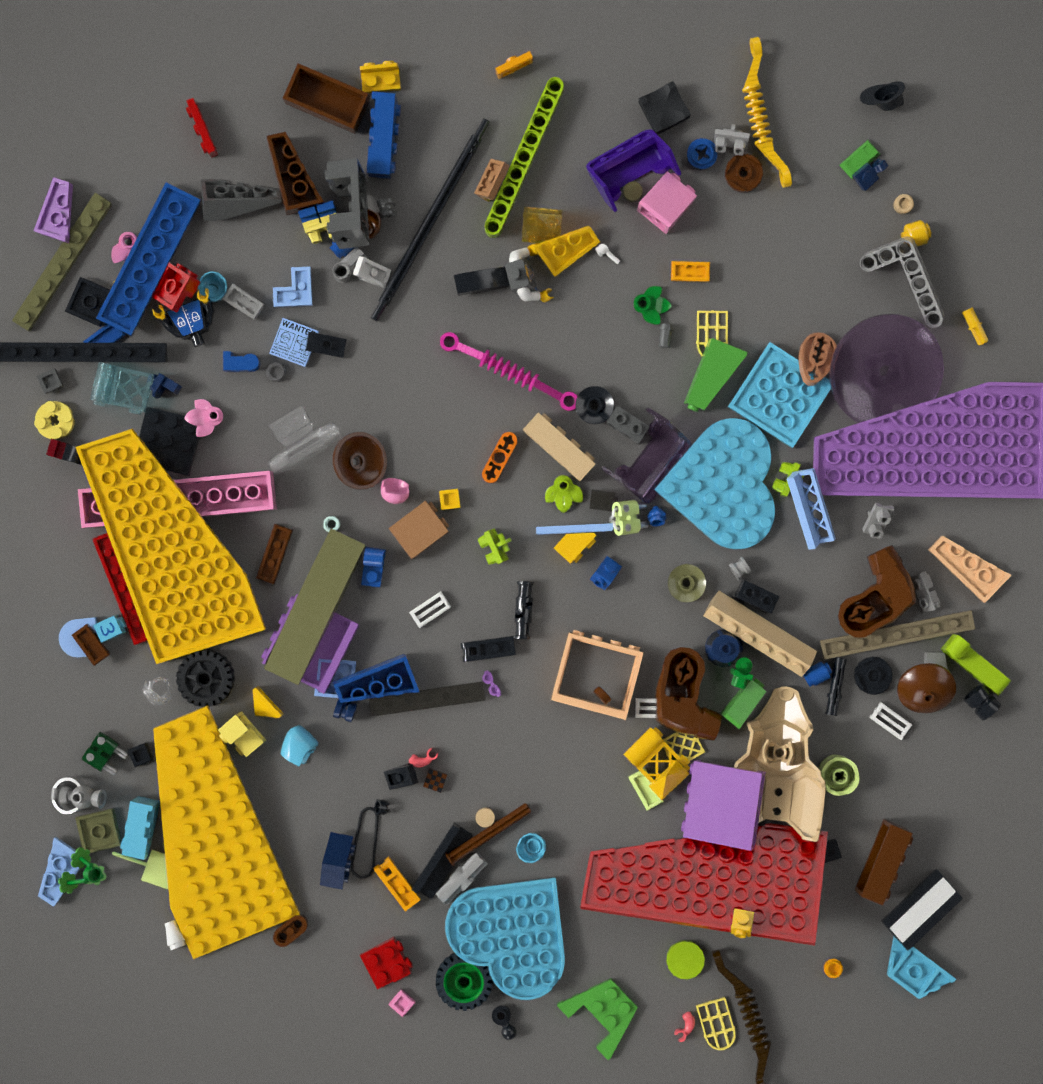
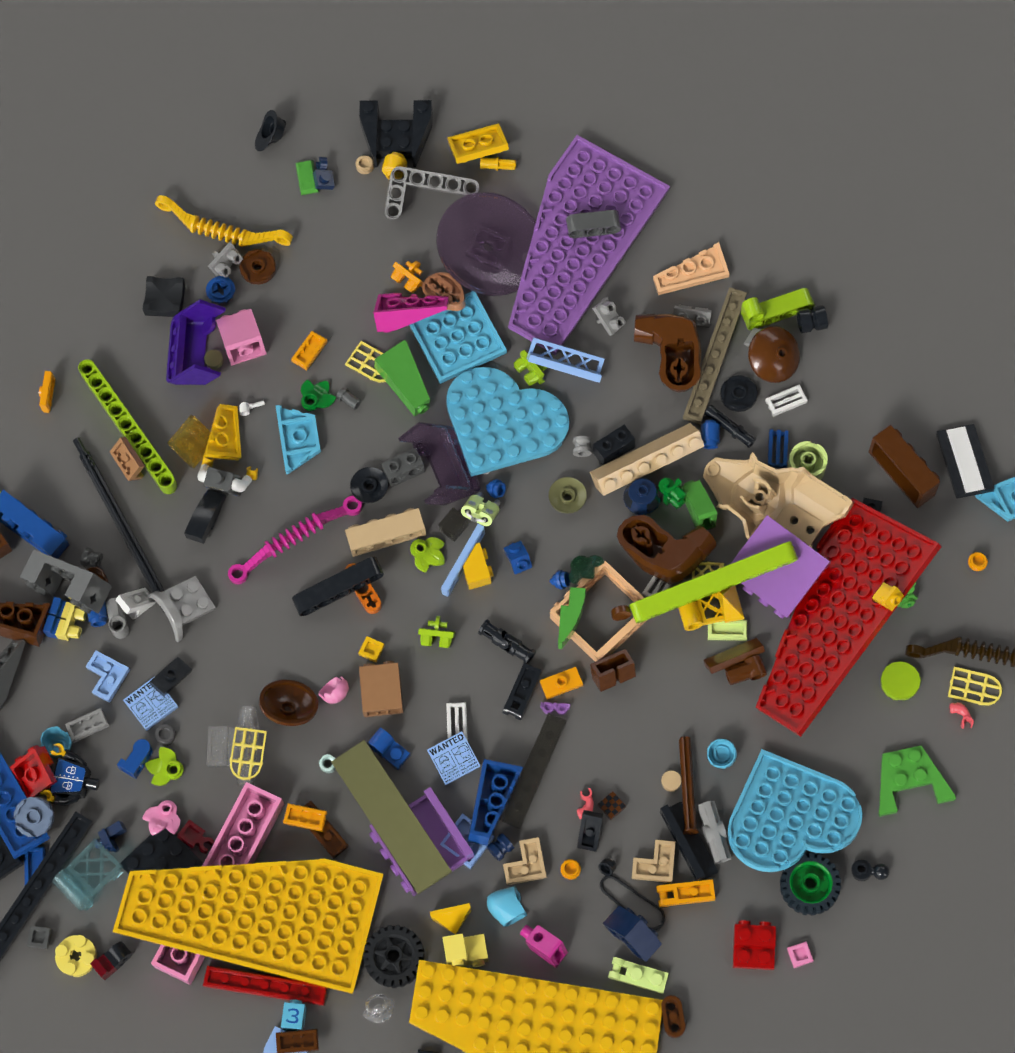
camera: 60 degrees left, 20 degrees down
(136, 314) = (34, 816): none -> sand blue tile
(205, 451) = (193, 835): none -> dark red plate
(248, 387) = (162, 767): none -> lime plate
(272, 536) = (305, 817): none -> light orange plate
(285, 803) = (544, 944): none -> dark pink torso
(304, 455) = (243, 746): none -> light yellow window
(308, 883) = (638, 975): none -> yellowish green plate
(341, 744) = (530, 867): none -> tan plate
(361, 778) = (570, 869): none -> light orange plate
(393, 314) = (183, 604): none -> light grey piece
(396, 626) = (453, 758): none -> light blue tile
(405, 850) = (657, 869): none -> tan plate
(486, 437) = (337, 586): none -> black beam
(515, 676) = (561, 683): none -> light orange plate
(546, 712) = (612, 669): none -> reddish brown piece
(572, 655) = (571, 615): none -> bright green slope
(603, 313) = (298, 437): none -> medium azure wing
(606, 622) = (560, 579): none -> blue plate
(620, 829) = (750, 669): none -> reddish brown piece
(624, 809) = (734, 655): none -> reddish brown tile
(627, 639) = (584, 567): none -> clear green plate
(674, 761) = (713, 582): none -> lime beam
(774, 331) = (396, 311): none -> dark pink wedge
(812, 323) = (400, 272): none -> light orange hips
(854, 732) = (779, 434): none -> blue tile
(947, 215) = (396, 135): none -> black wedge
(960, 454) = (593, 224): none -> dark grey beam
(984, 296) = (478, 143): none -> yellow plate

